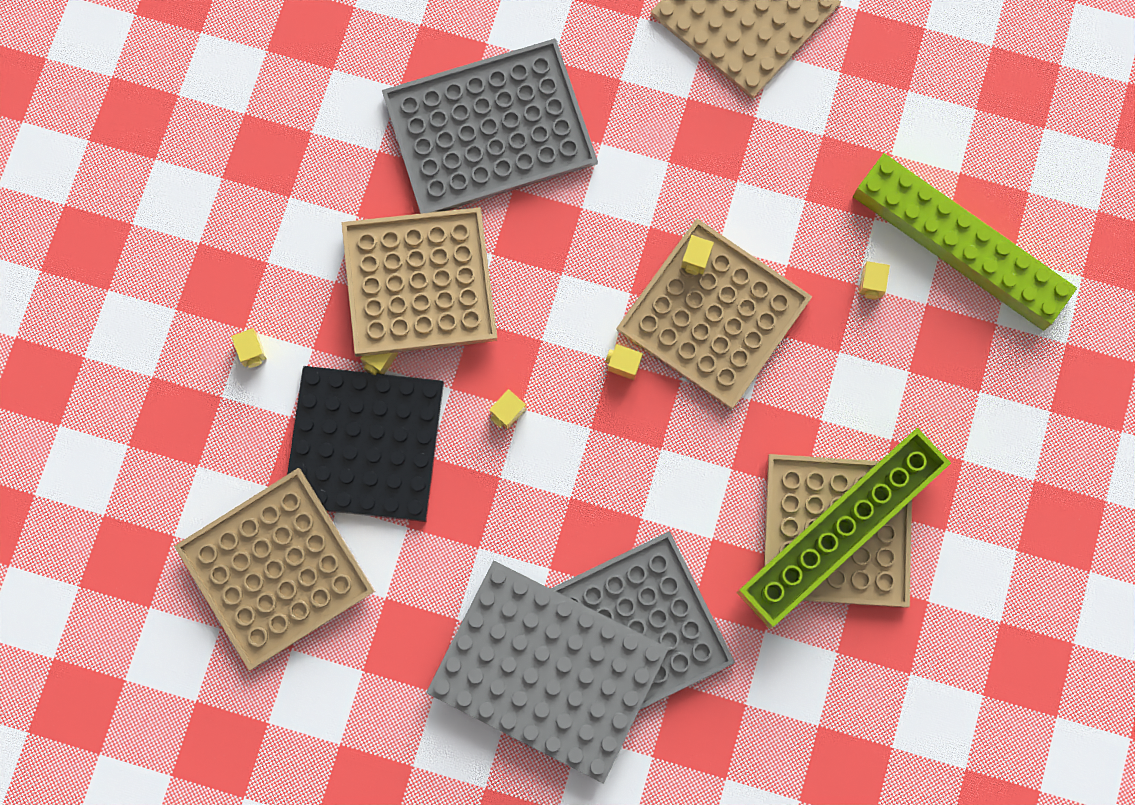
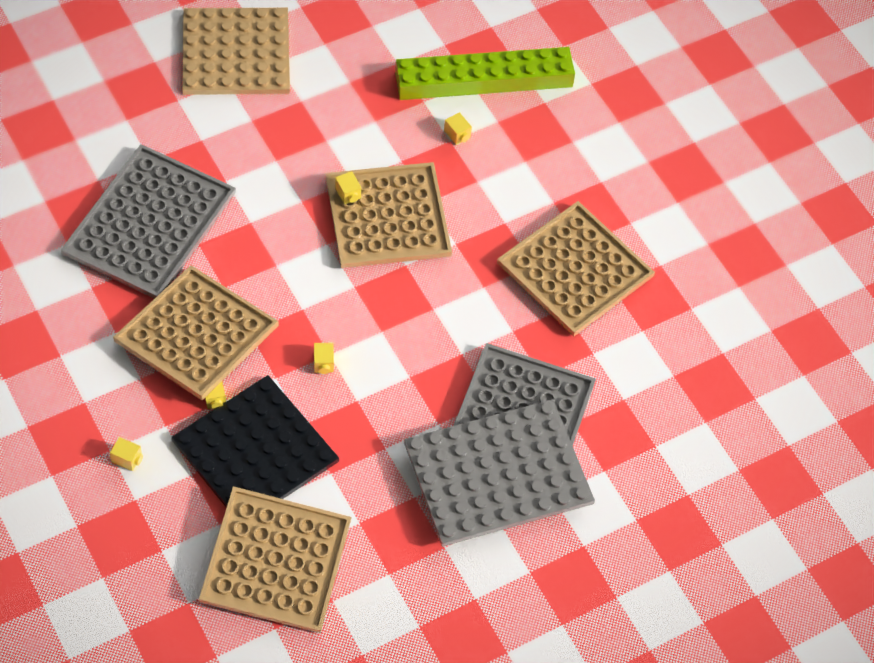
camera: 50 degrees left, 20 degrees down
(623, 361) = (364, 278): light yellow brick -> none
(843, 528) = (579, 259): lime brick -> none

